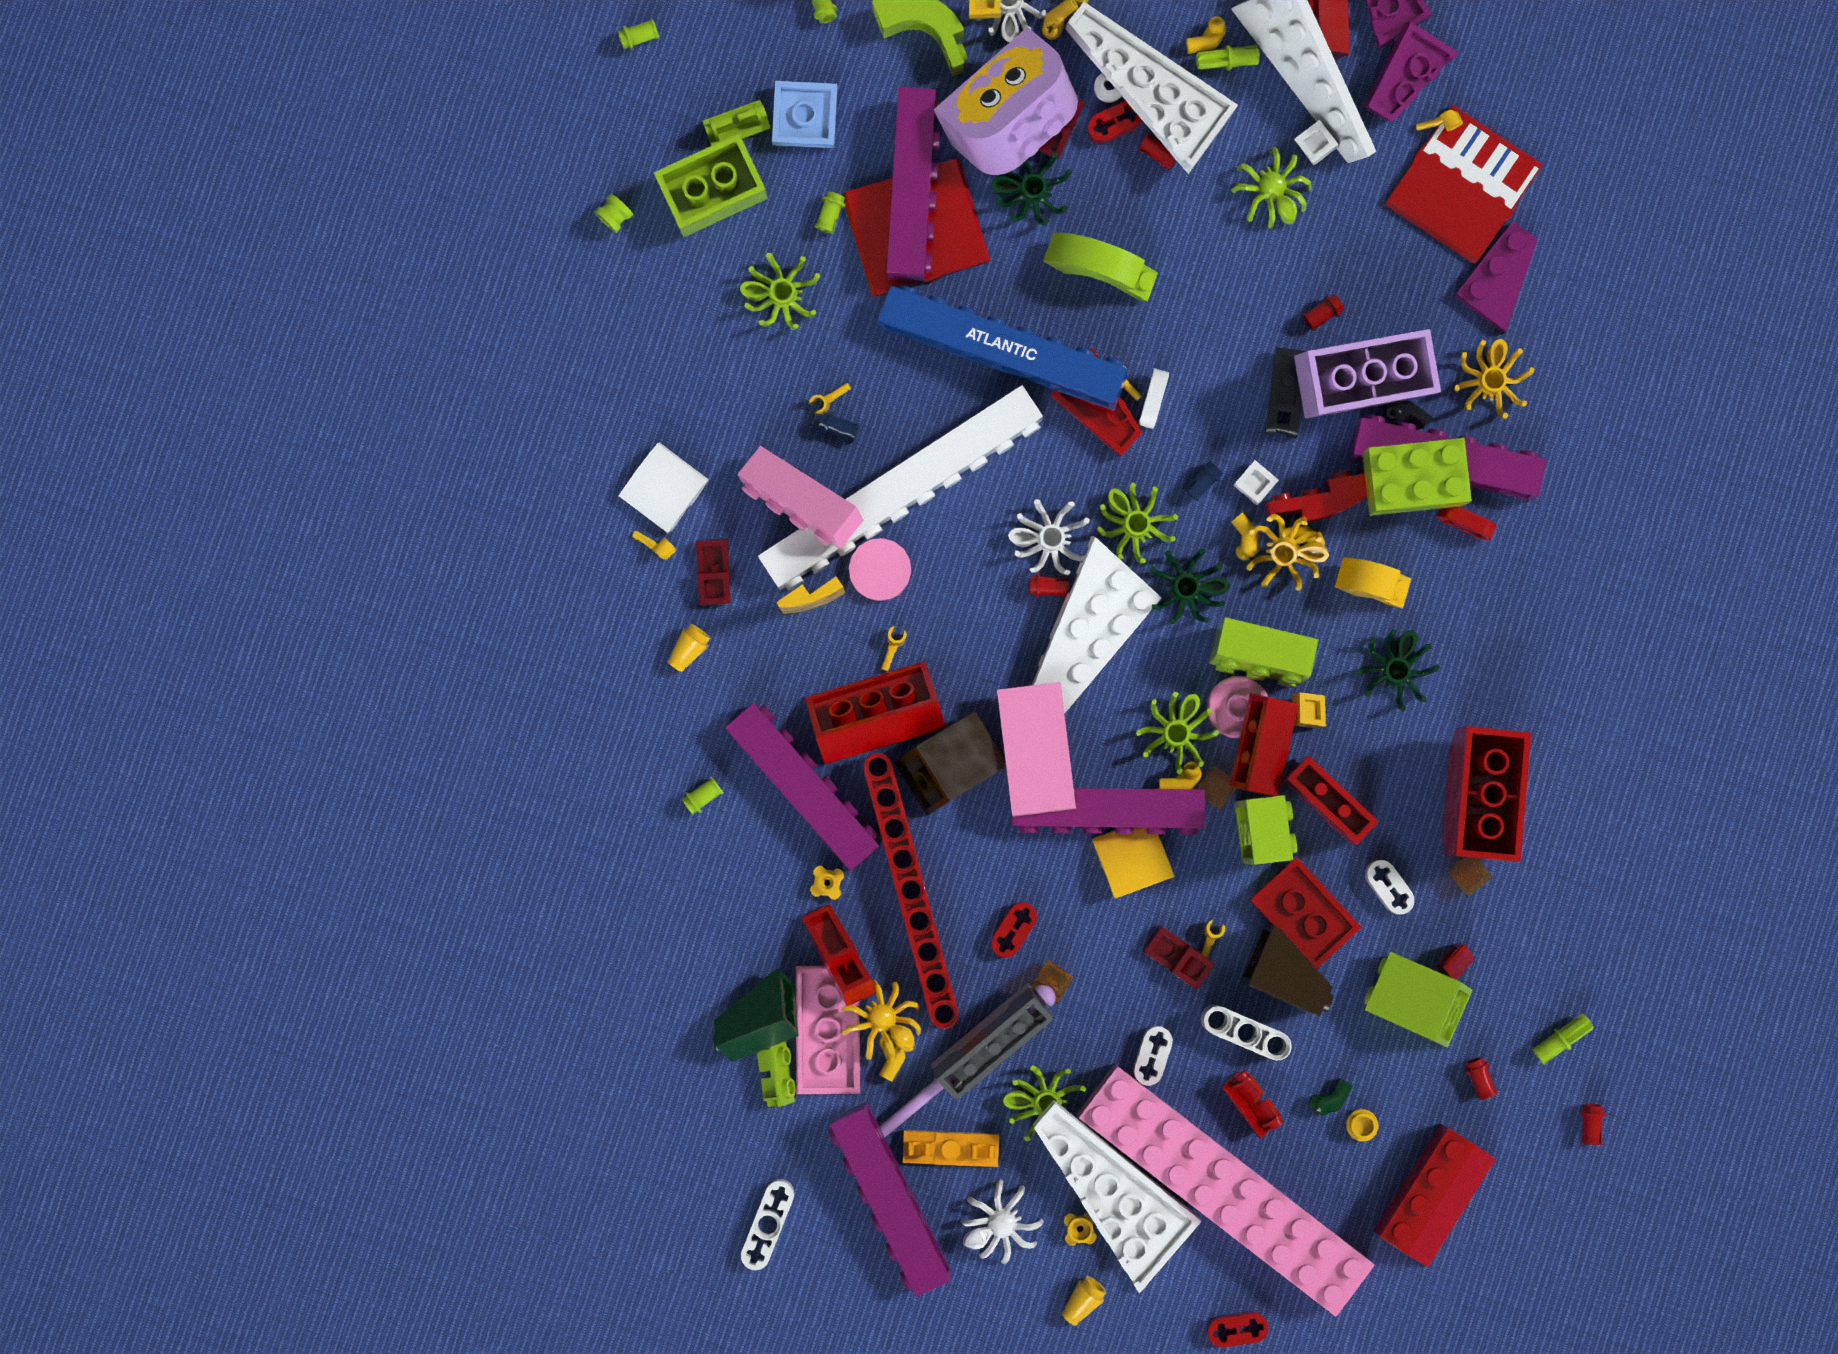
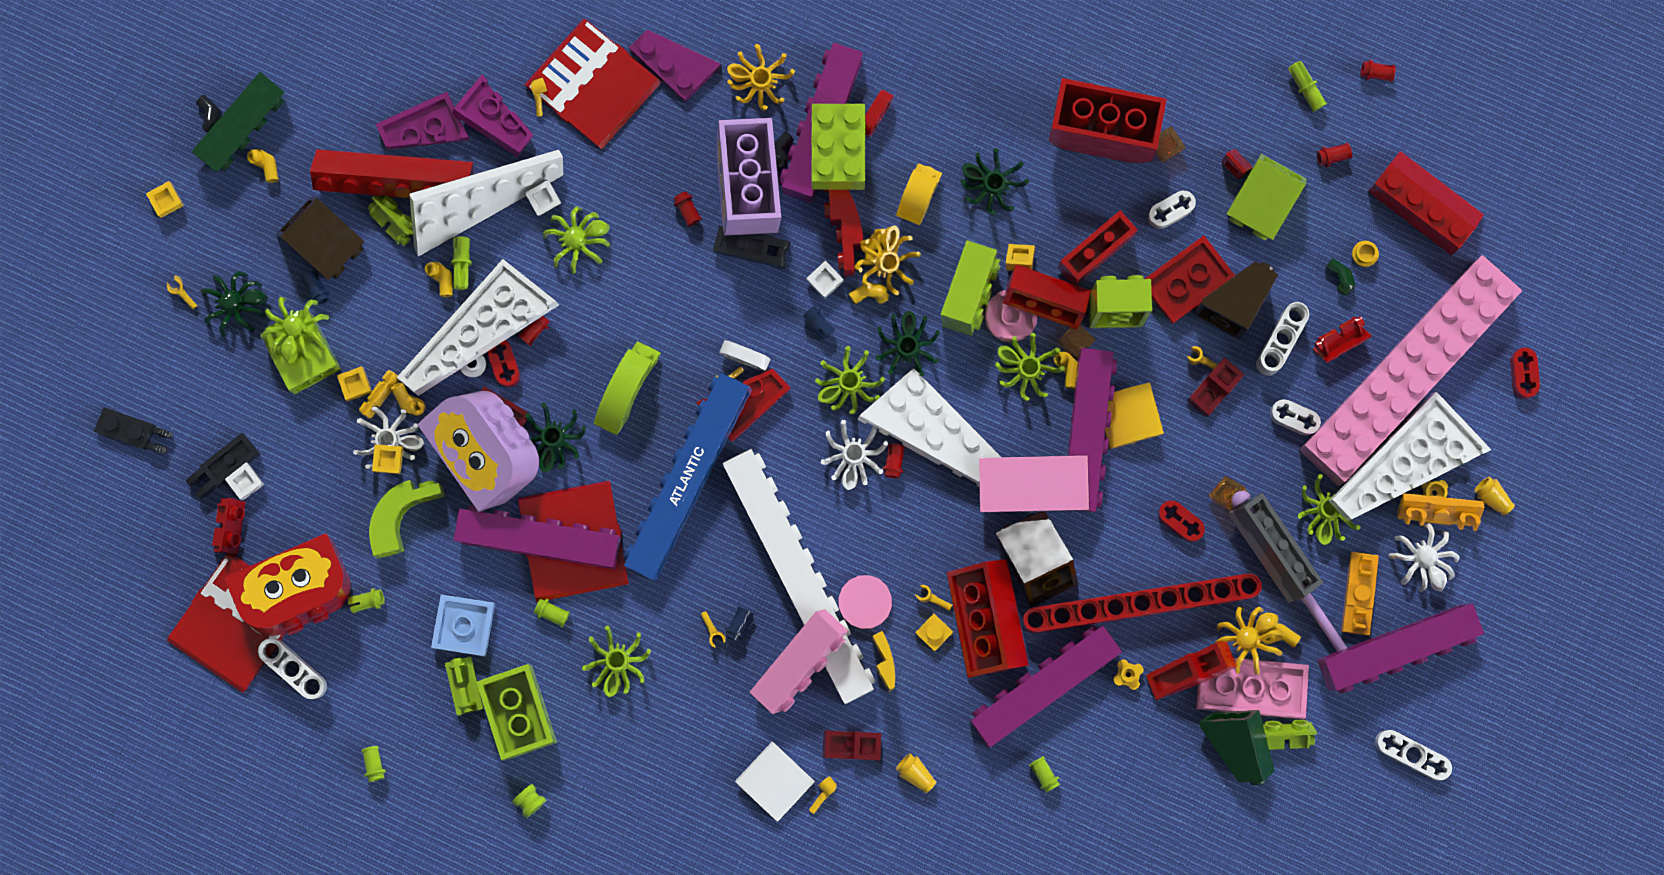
camera: 85 degrees left, 5 degrees down
(853, 653) = (934, 632): none -> yellow plate
(1058, 1236) = (1440, 510): none -> light orange plate

